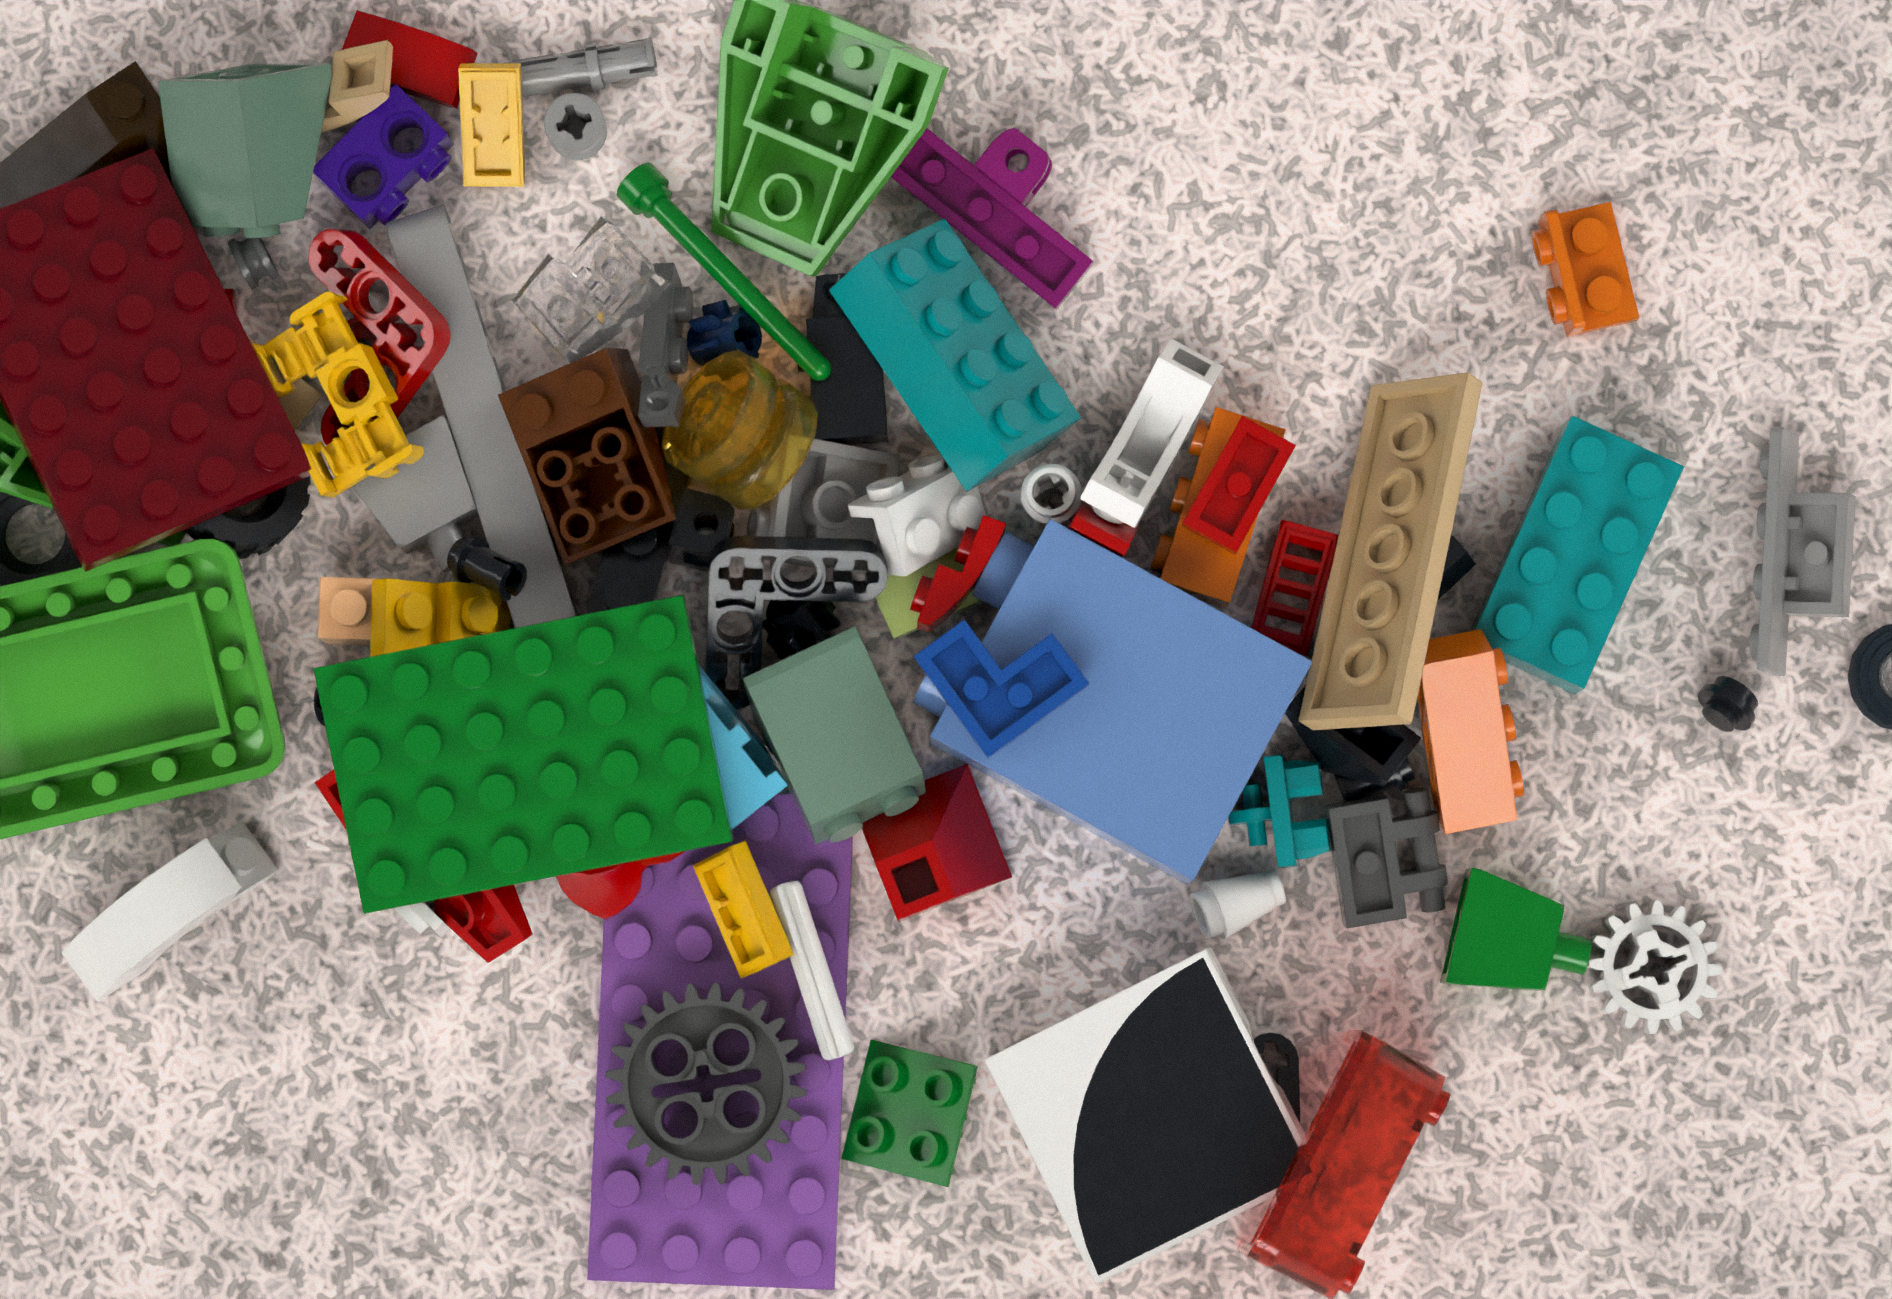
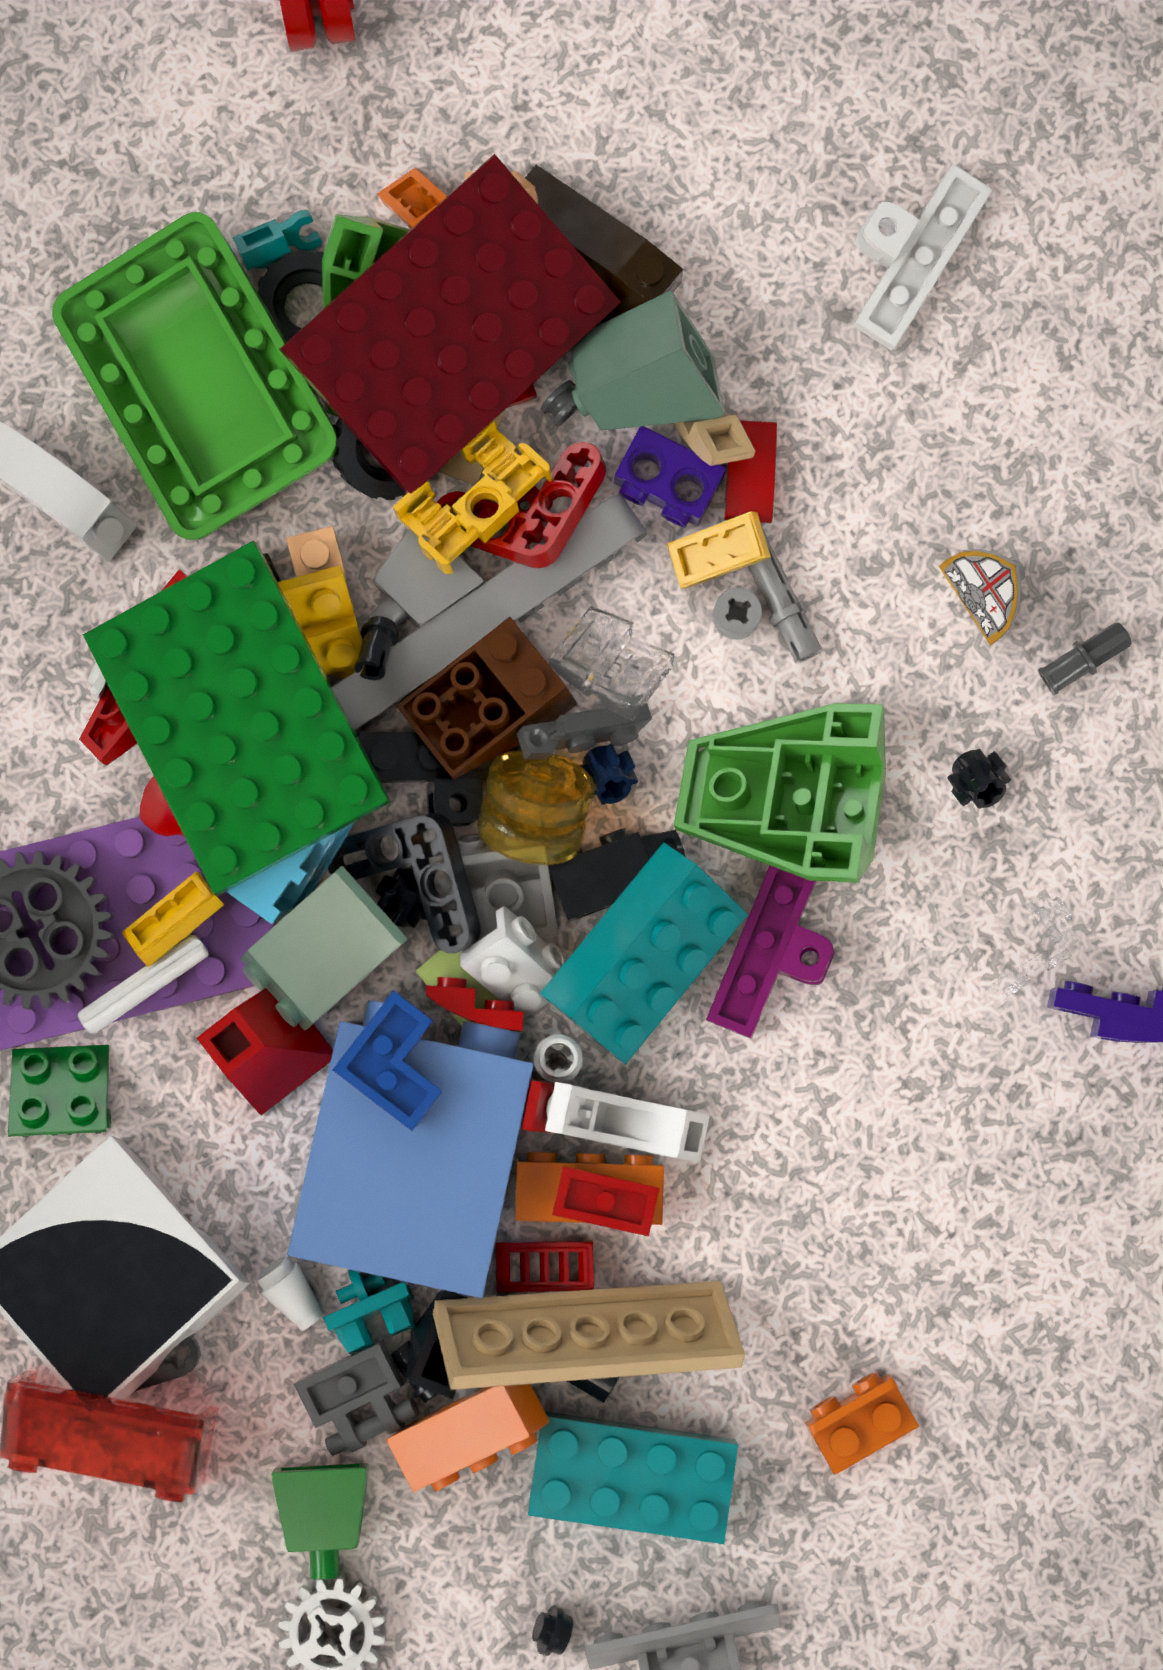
camera: 65 degrees right, 0 degrees up
(647, 193) = (701, 684): green piece -> none

